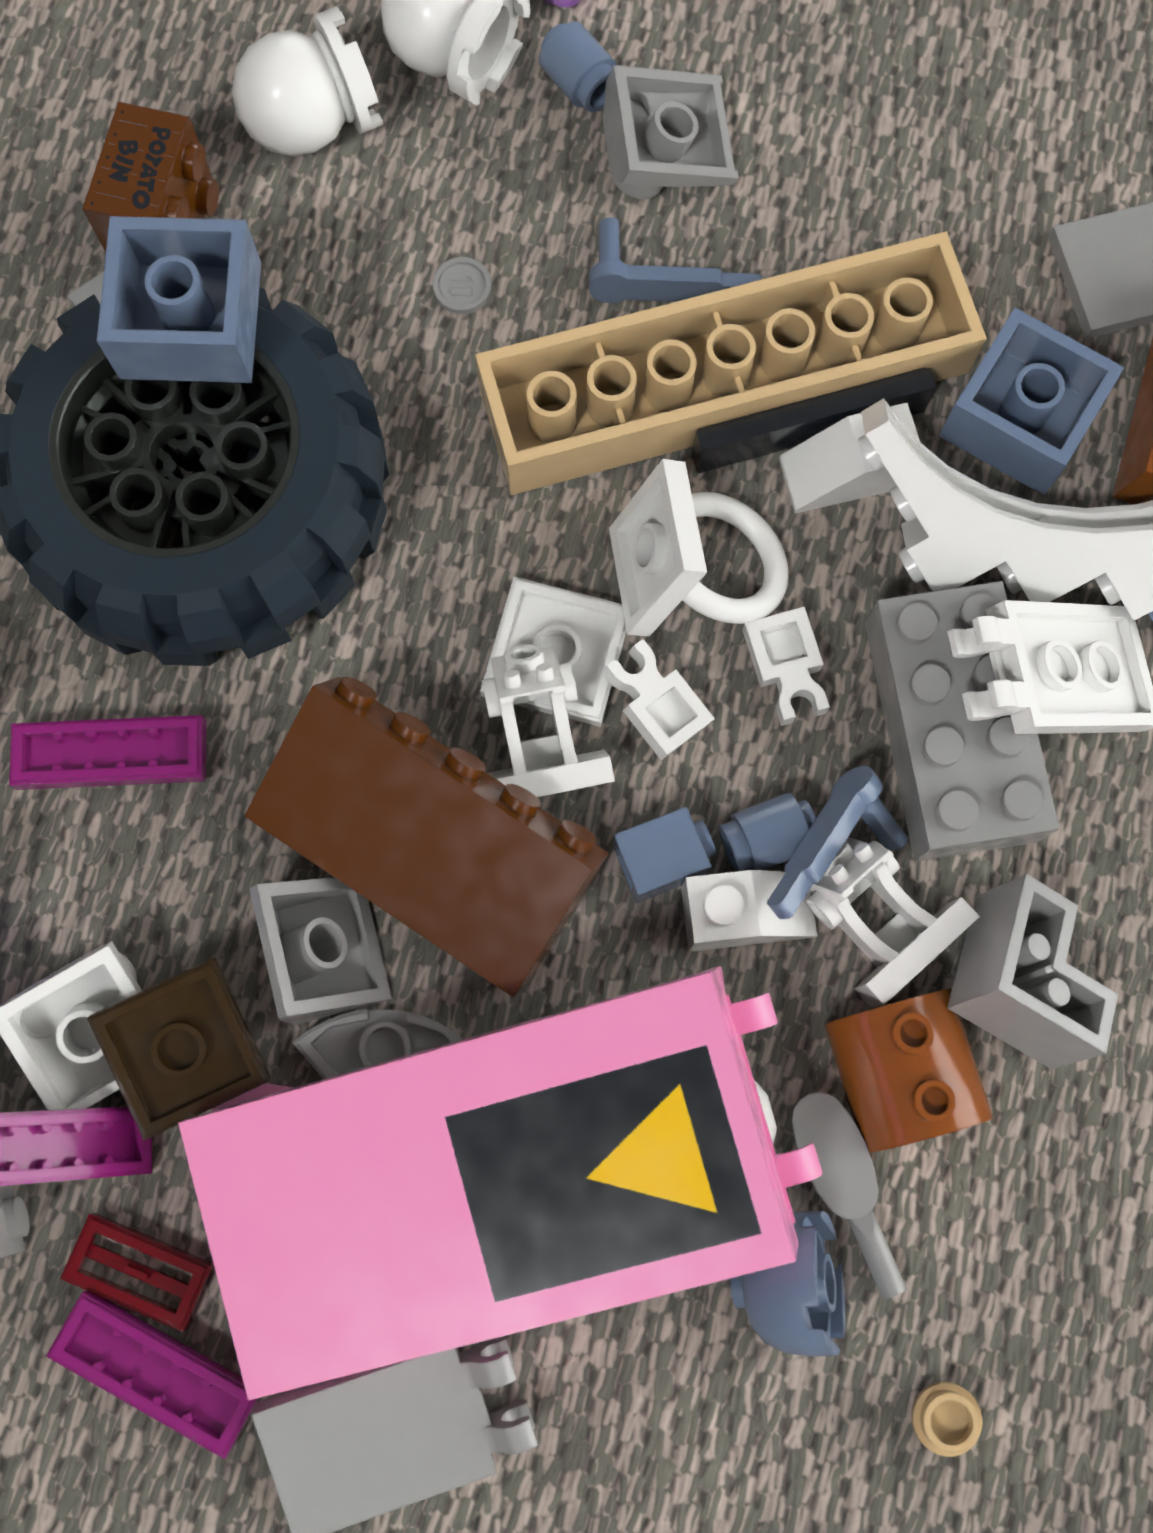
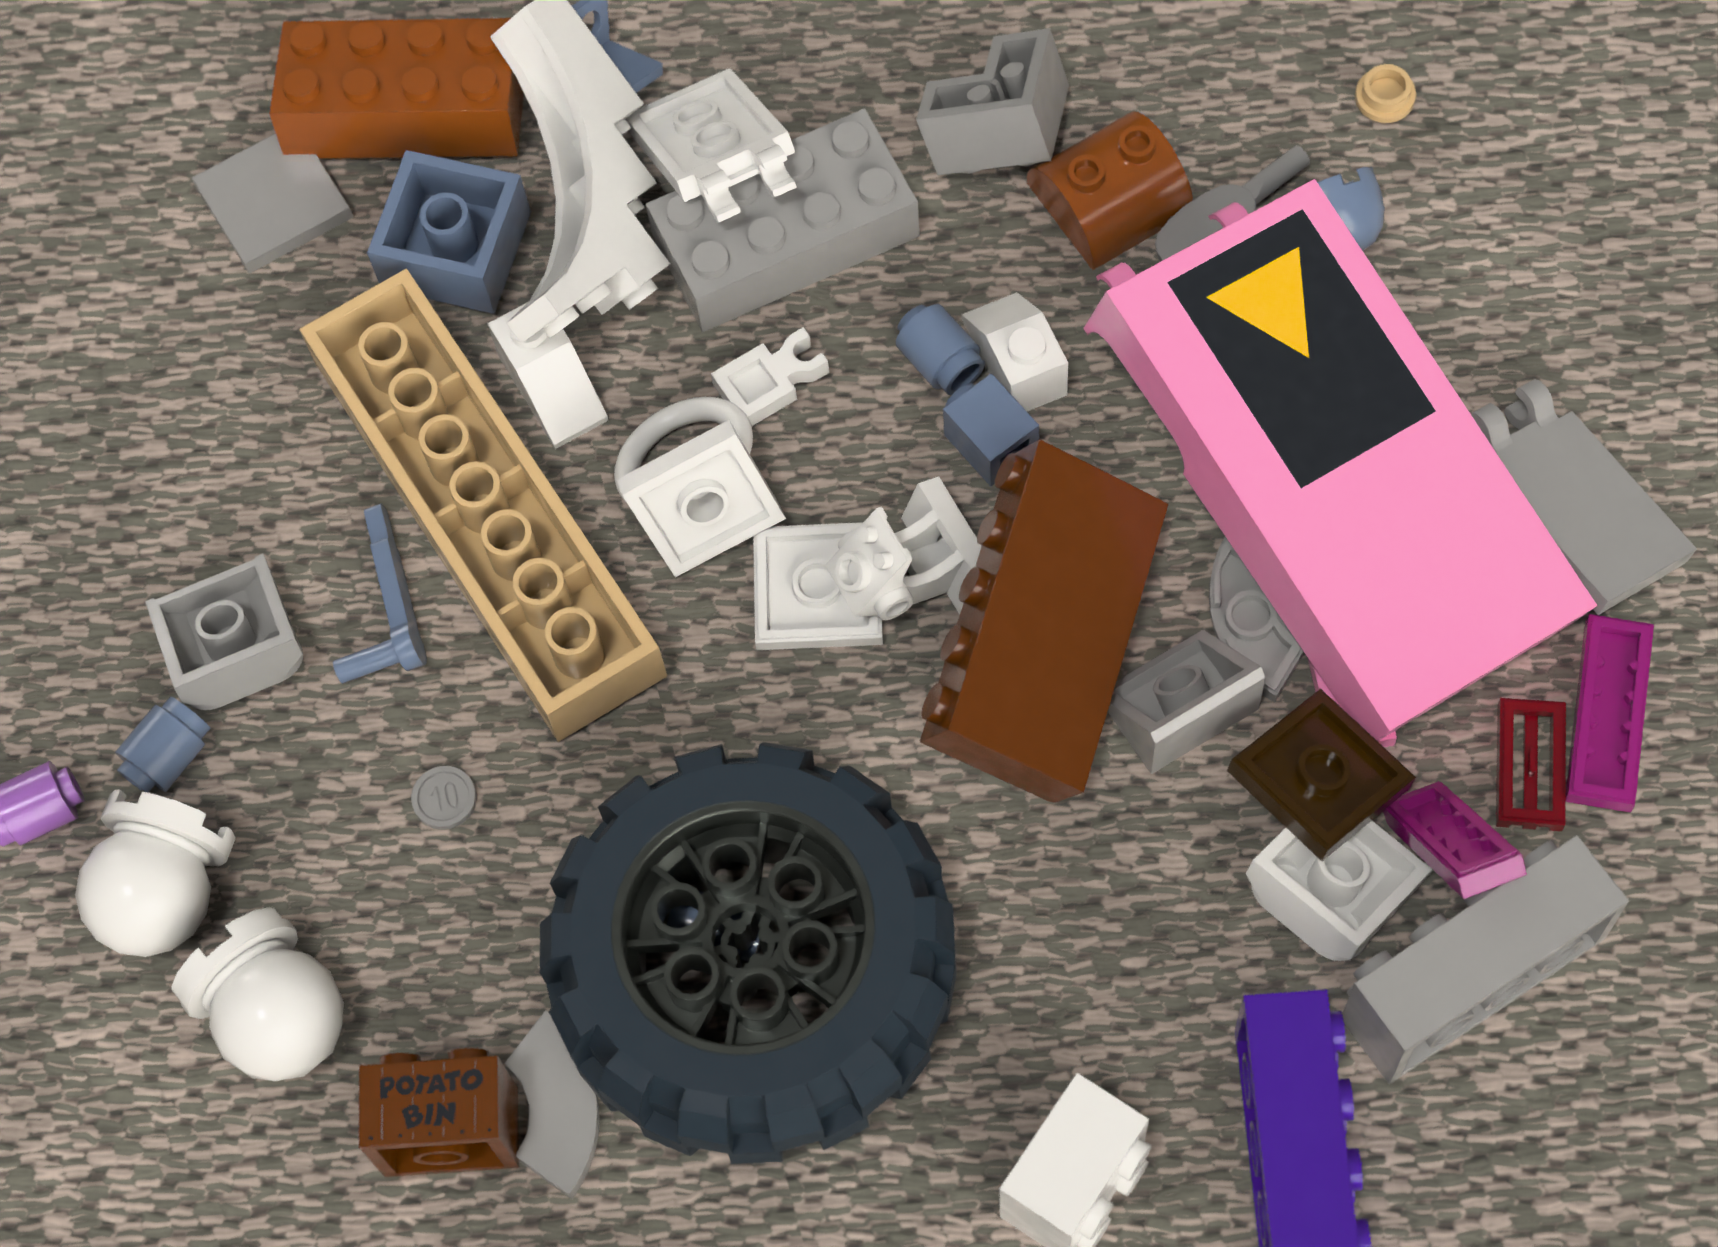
camera: 100 degrees left, 10 degrees down
(108, 752) = (1059, 964): magenta plate -> none
(180, 299) = (608, 932): sand blue brick -> none
(662, 708) = (842, 470): white plate -> none
(796, 422) = (518, 416): black tile -> none
(851, 797) = (897, 280): sand blue piece -> none
(906, 940) = (996, 217): white tile -> none

